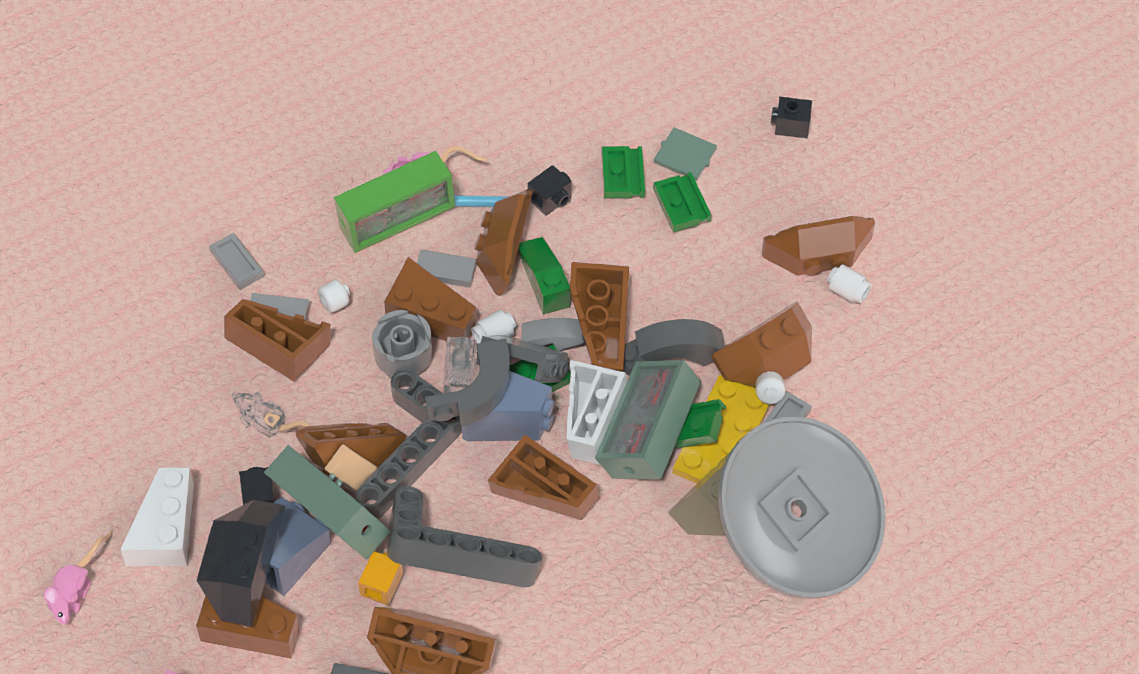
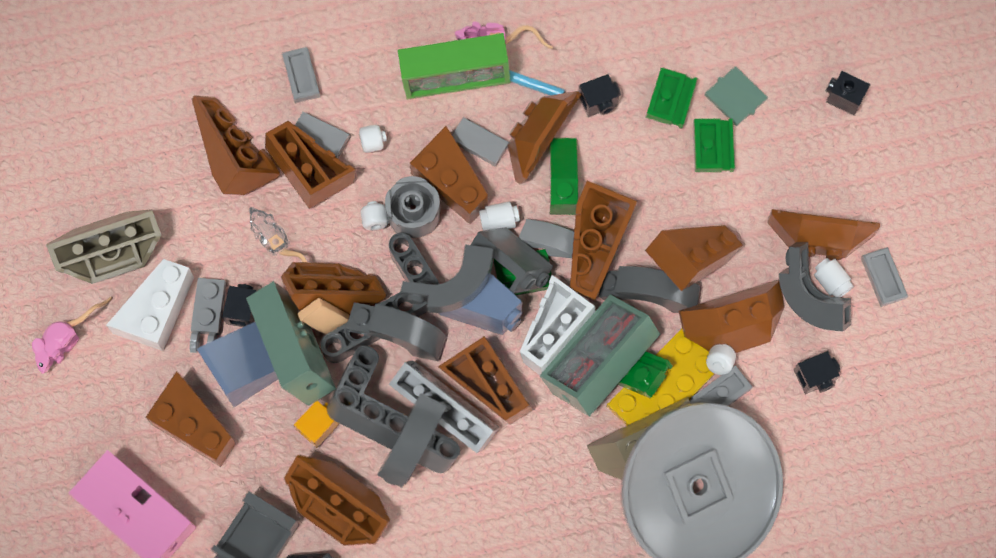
camera: 20 degrees right, 15 degrees up
(93, 478) = (106, 246): none -> dark tan wedge
(189, 353) = (230, 153): none -> dark orange wedge
(218, 497) = (207, 311): none -> light grey hinge
(239, 560) = (196, 375): black wedge -> none
(365, 366) = (374, 216): none -> white piece
(432, 453) = (399, 327): none -> dark grey arch
(460, 363) = (452, 246): clear slope -> none
(489, 558) = (411, 441): none -> dark grey arch
(508, 518) = (458, 417): none -> light grey brick
(703, 294) = (693, 252): none -> dark orange wedge
(832, 310) = (806, 299): none -> dark grey arch
(869, 373) = (817, 373): none -> black brick
(897, 270) = (884, 277): none -> light grey tile

